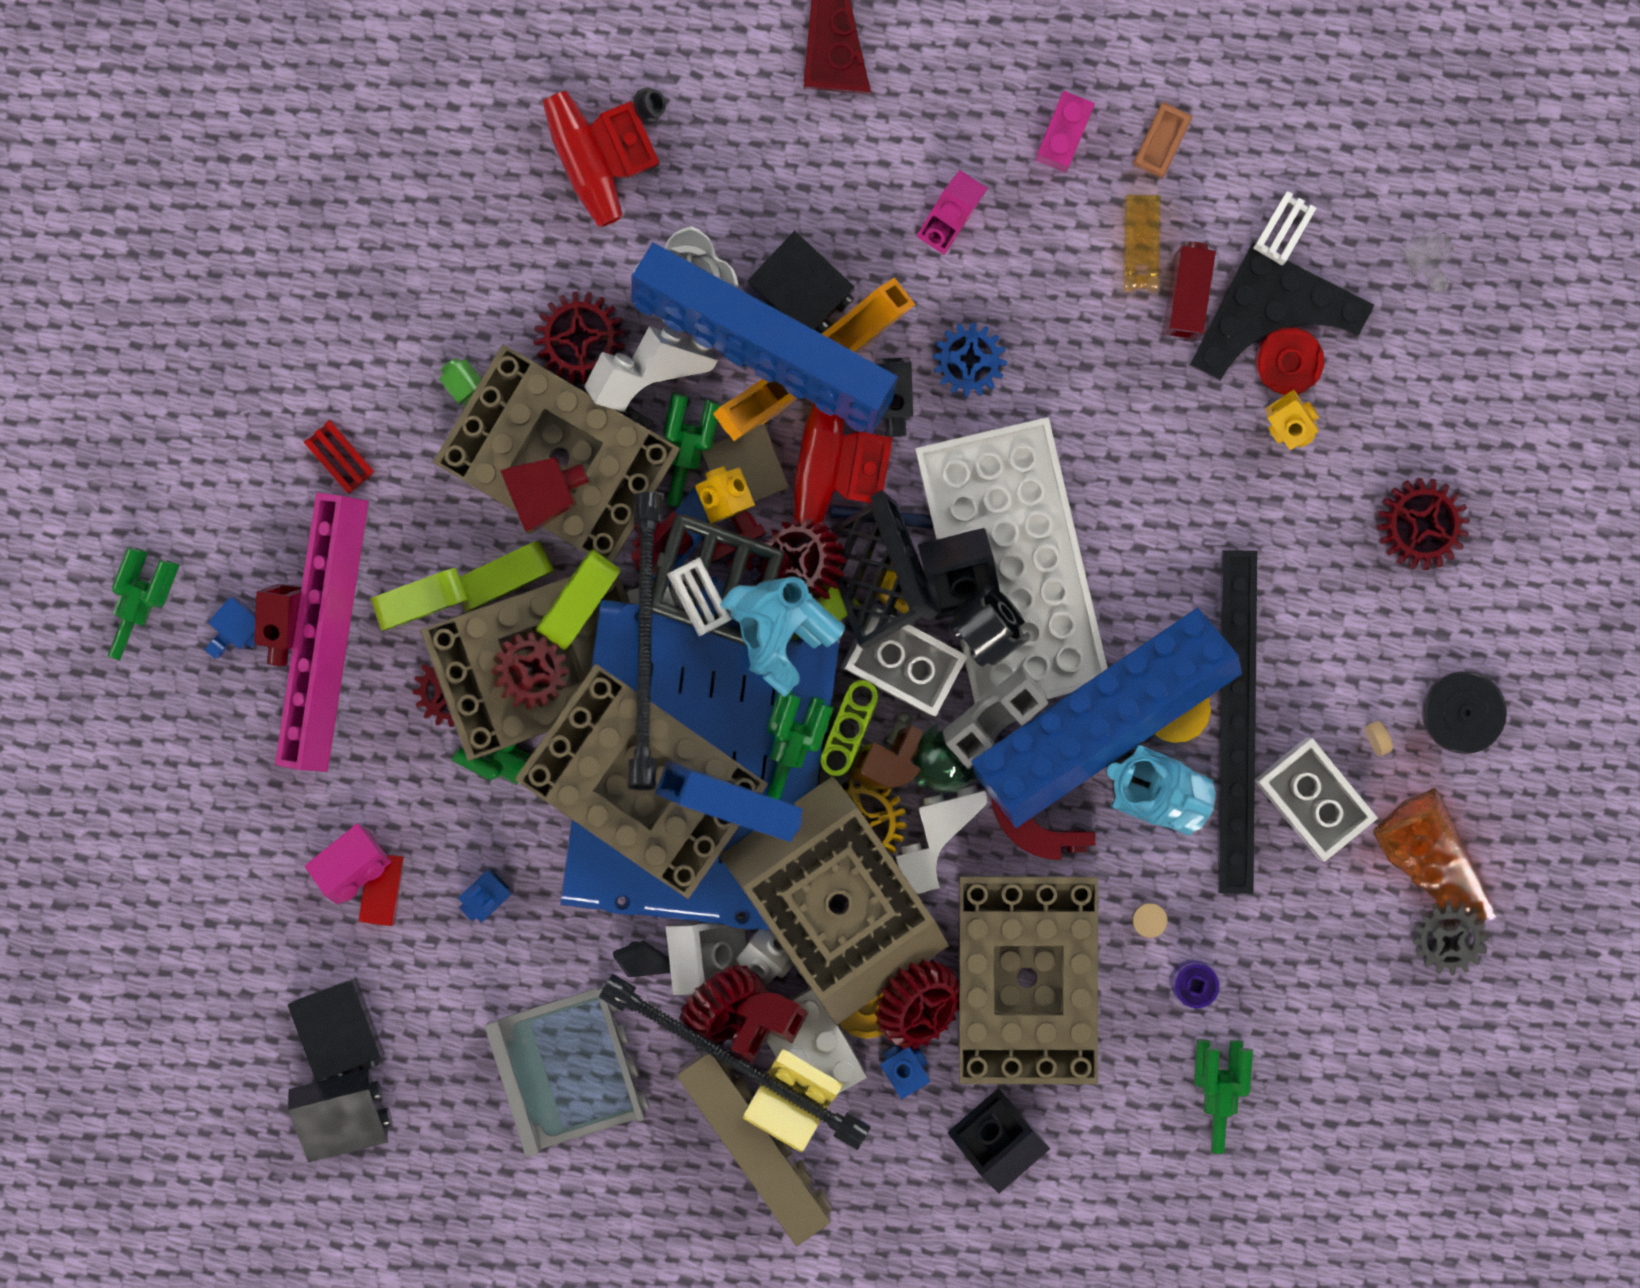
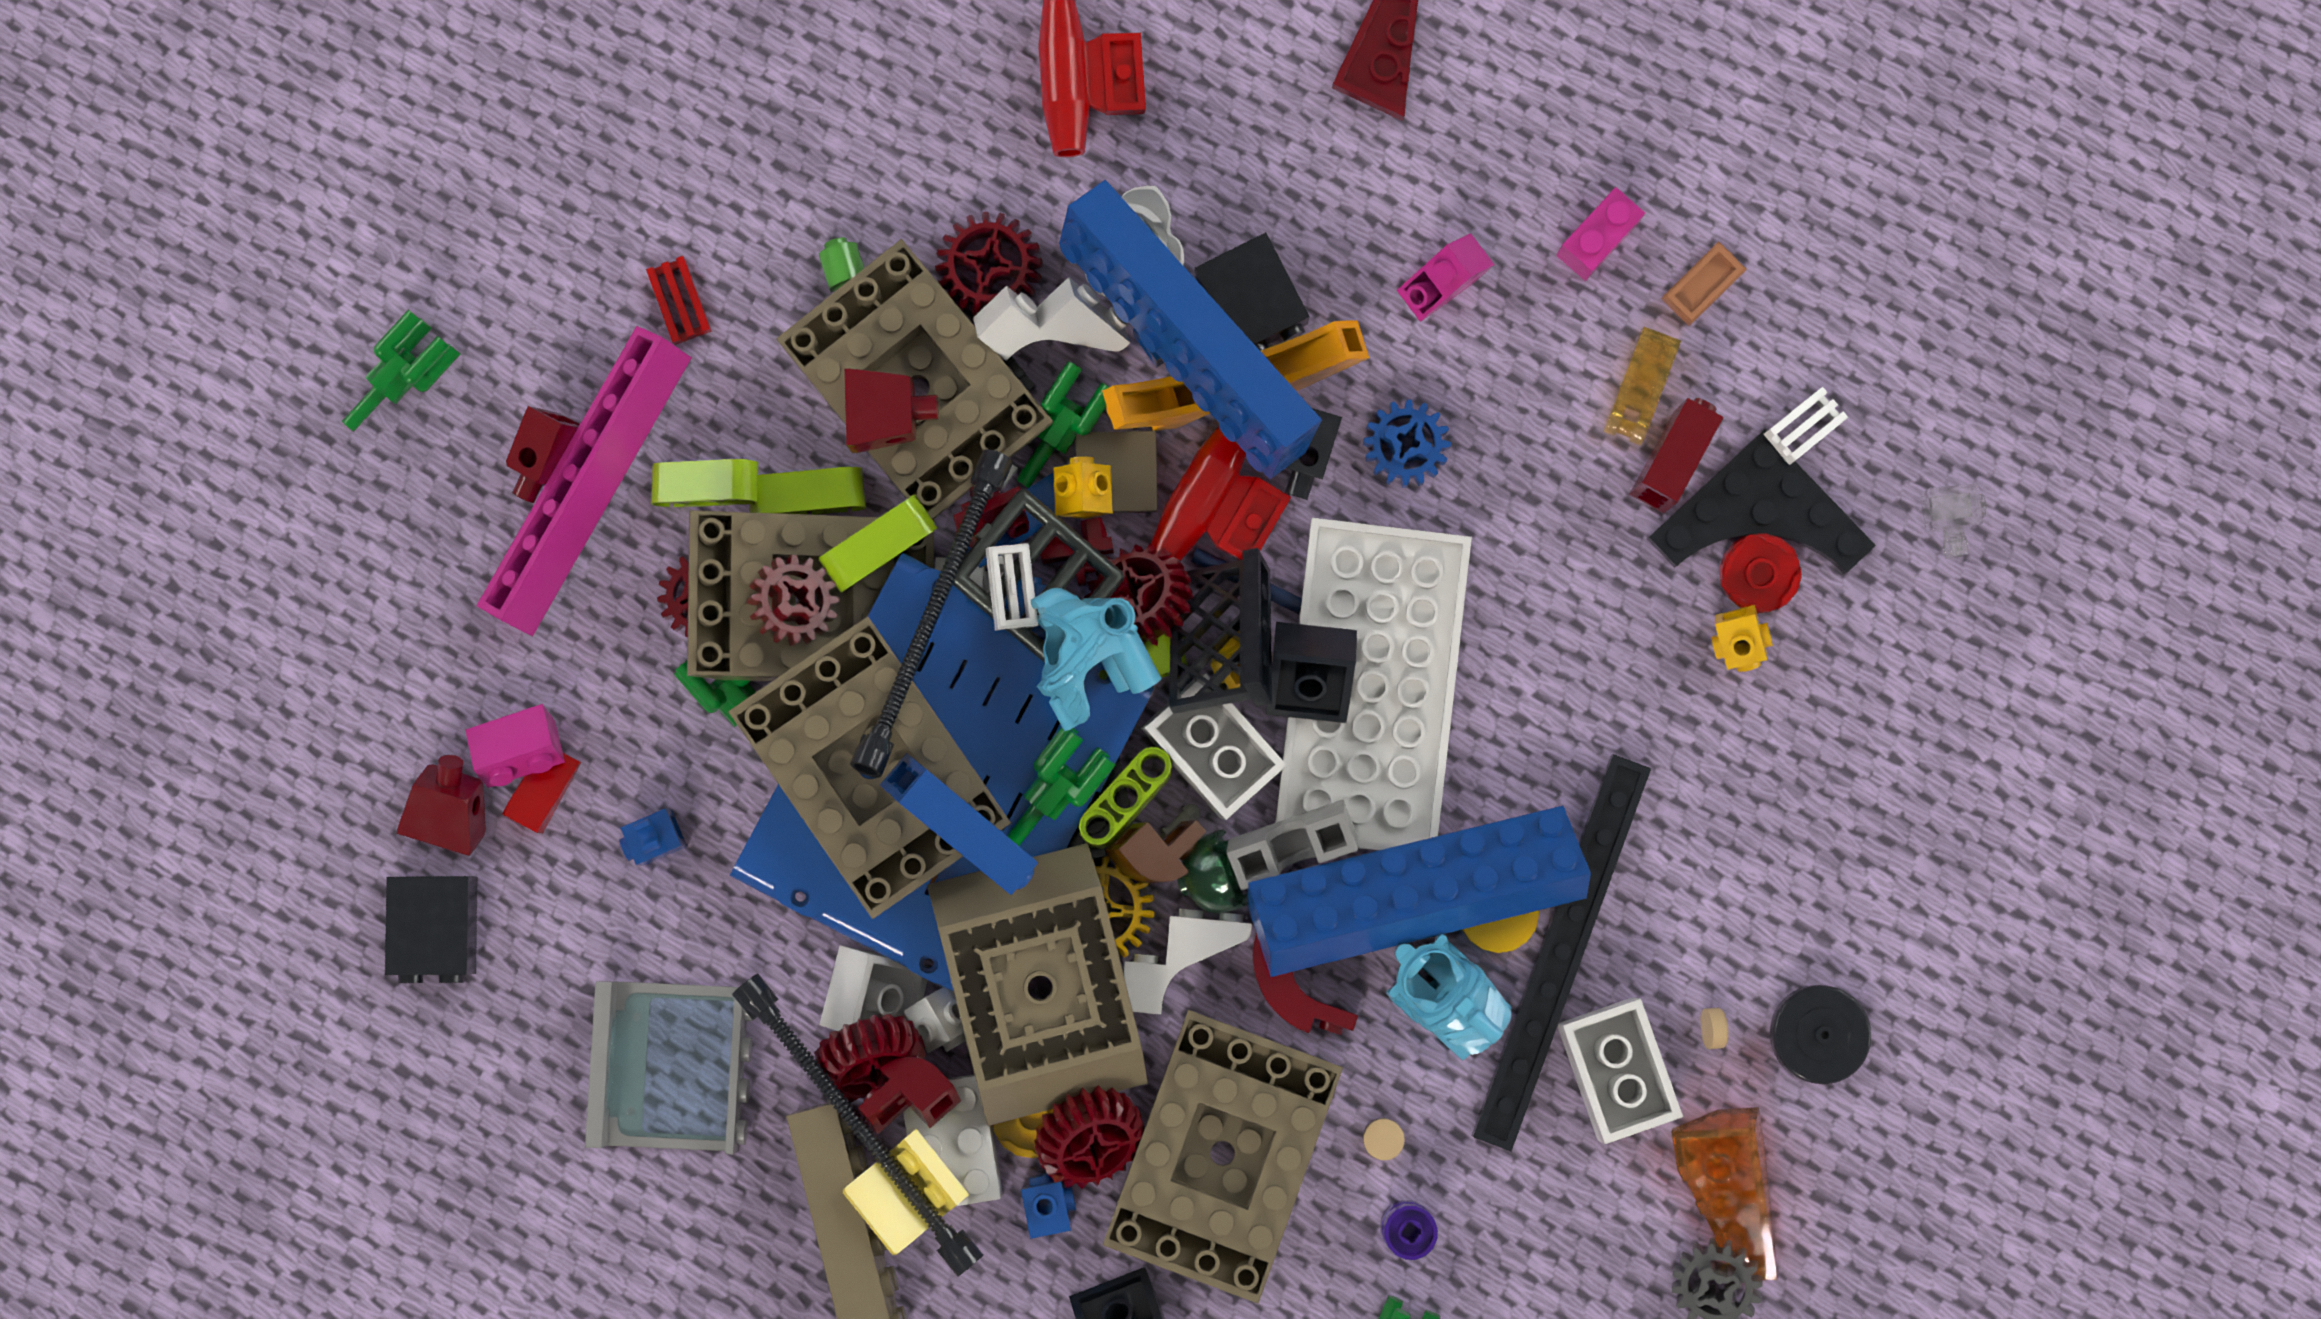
camera: 25 degrees right, 5 degrees down
(235, 626) = (492, 440): blue brick -> none
(312, 933) = (445, 807): none -> dark red torso
(339, 1115) = (395, 1022): black brick -> none
(641, 960) = (799, 973): black piece -> none
(649, 104) = (1158, 44): black plate -> none
(989, 626) = (1322, 740): black brick -> none
(1437, 532) = (1858, 819): dark red gear -> none

